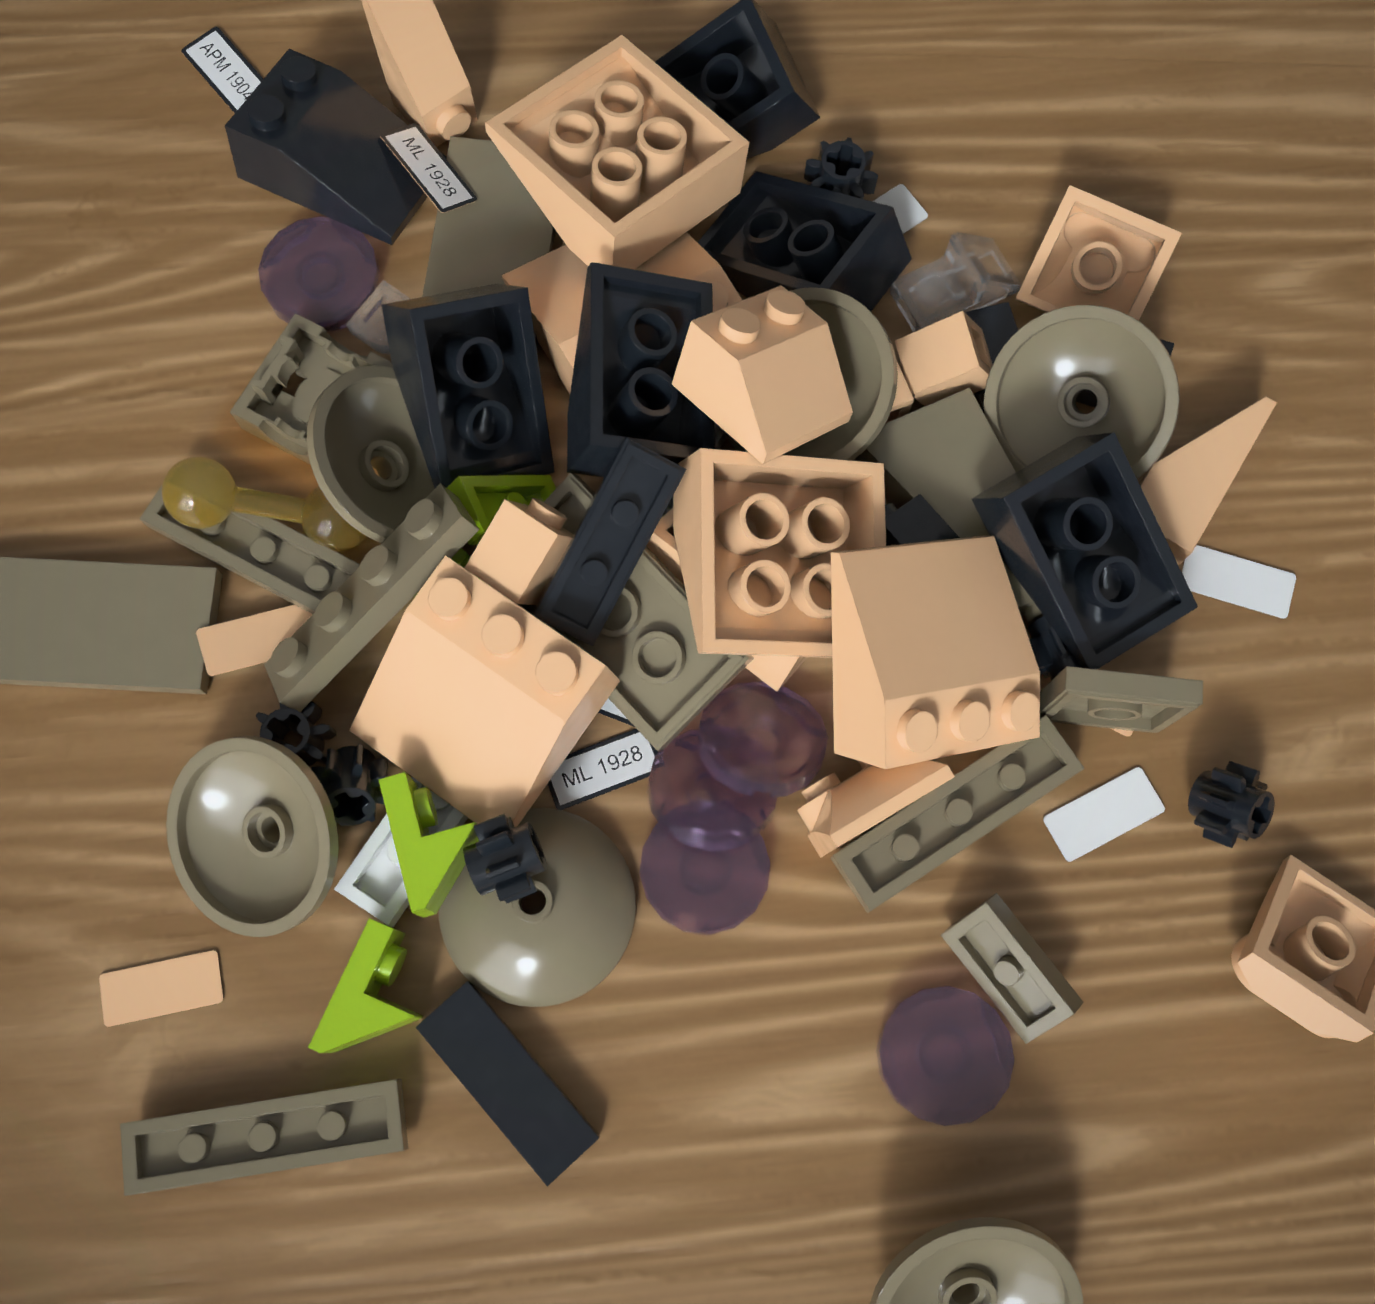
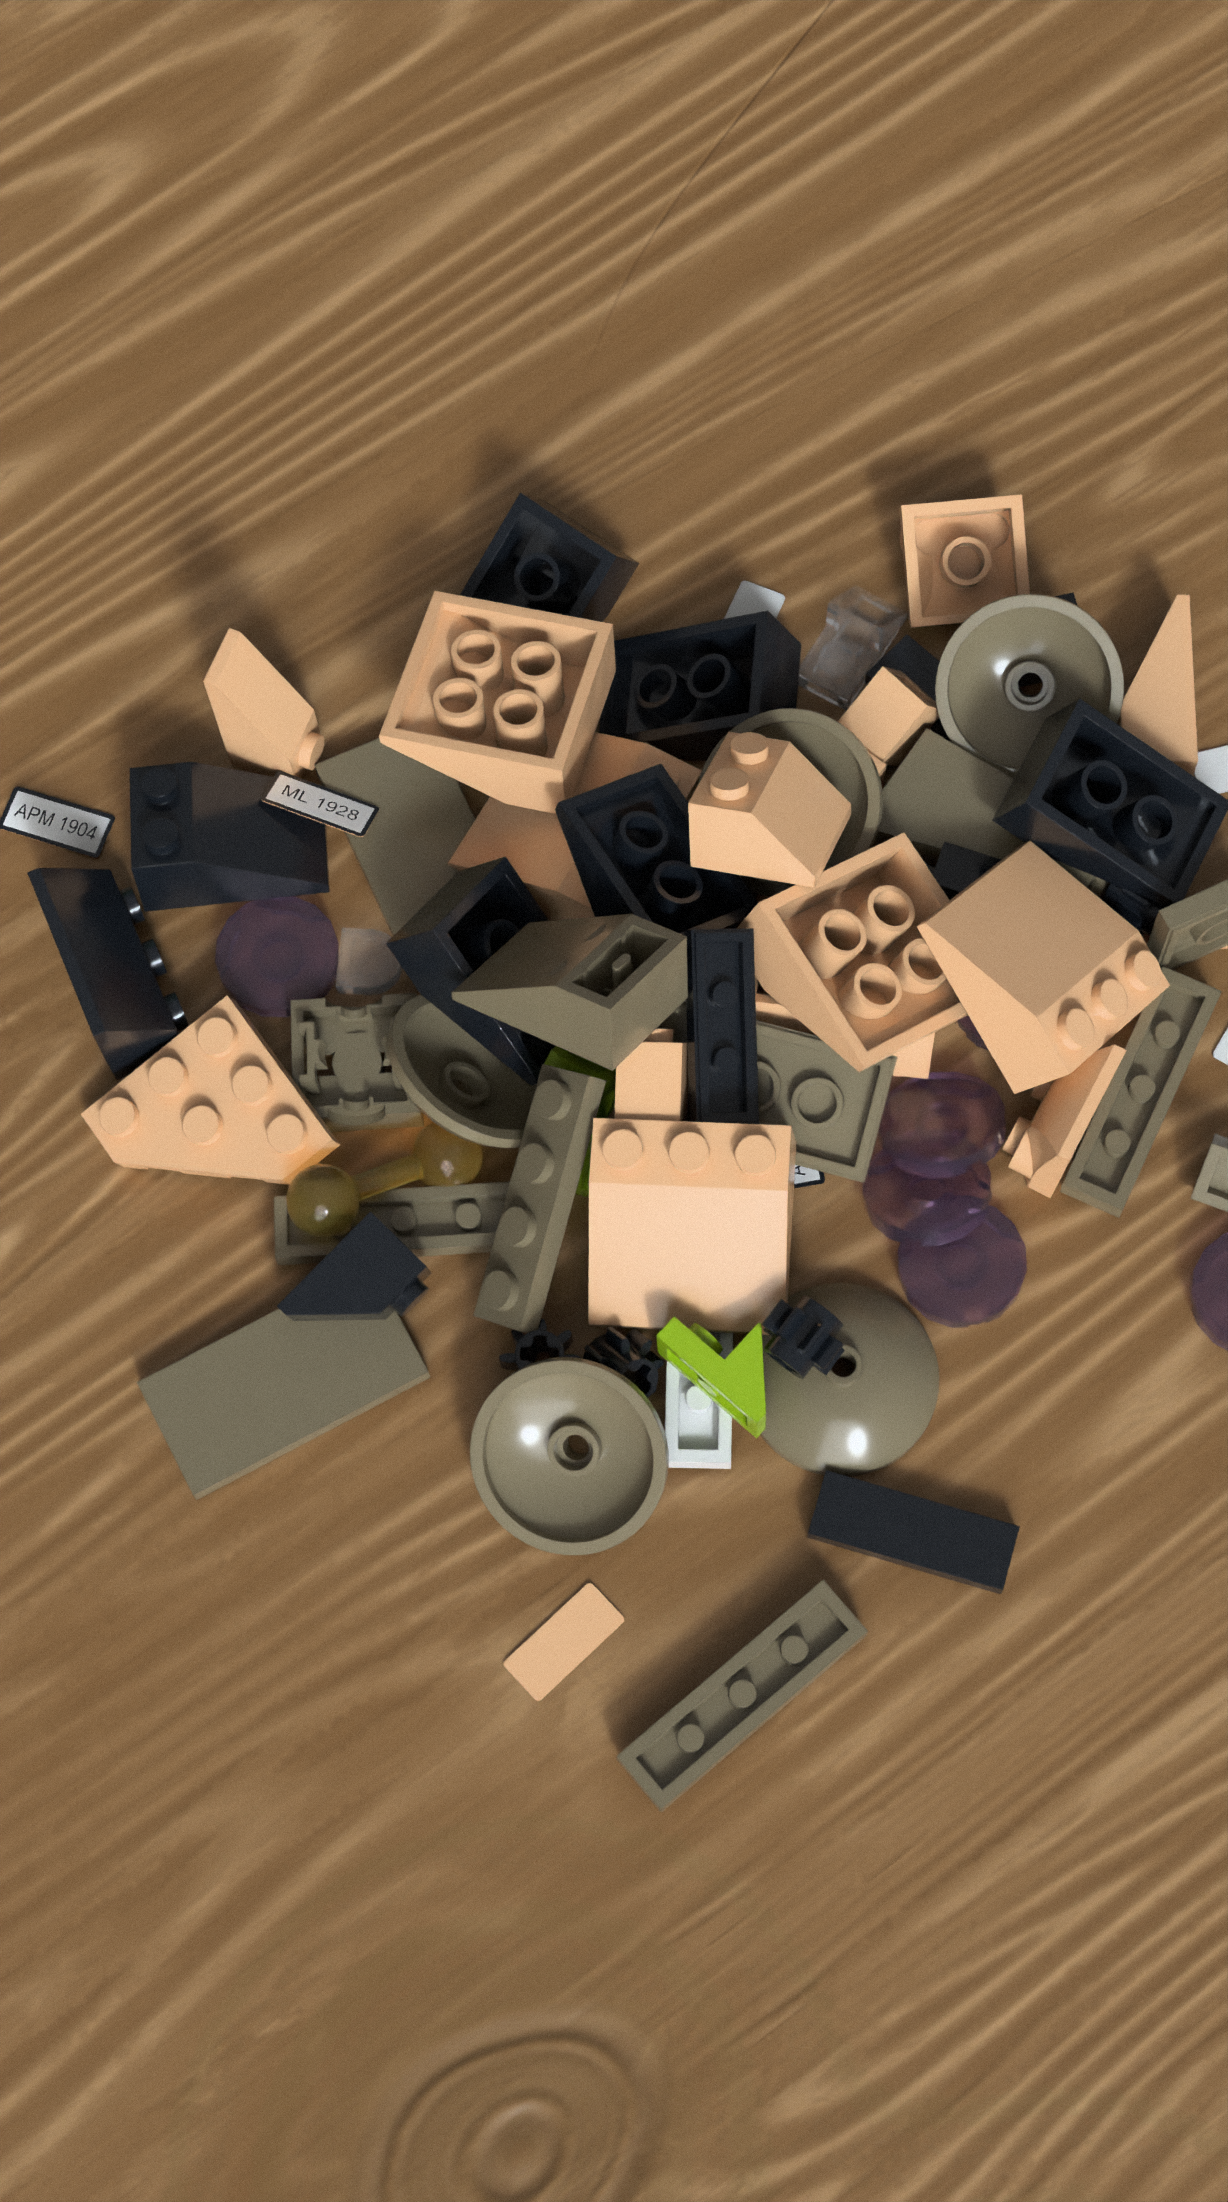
camera: 25 degrees left, 5 degrees down
(164, 199) = (109, 964): none -> black slope
(177, 364) = (213, 1107): none -> light nougat plate
(185, 576) = (360, 1279): none -> black slope
(248, 639) = (446, 1305): light nougat sticker -> none
(355, 1008) = (752, 1545): lime slope -> none
(506, 435) = (584, 983): none -> dark tan slope
(602, 769) = (822, 1230): white sticker -> none
(842, 169) = (689, 589): black gear -> none

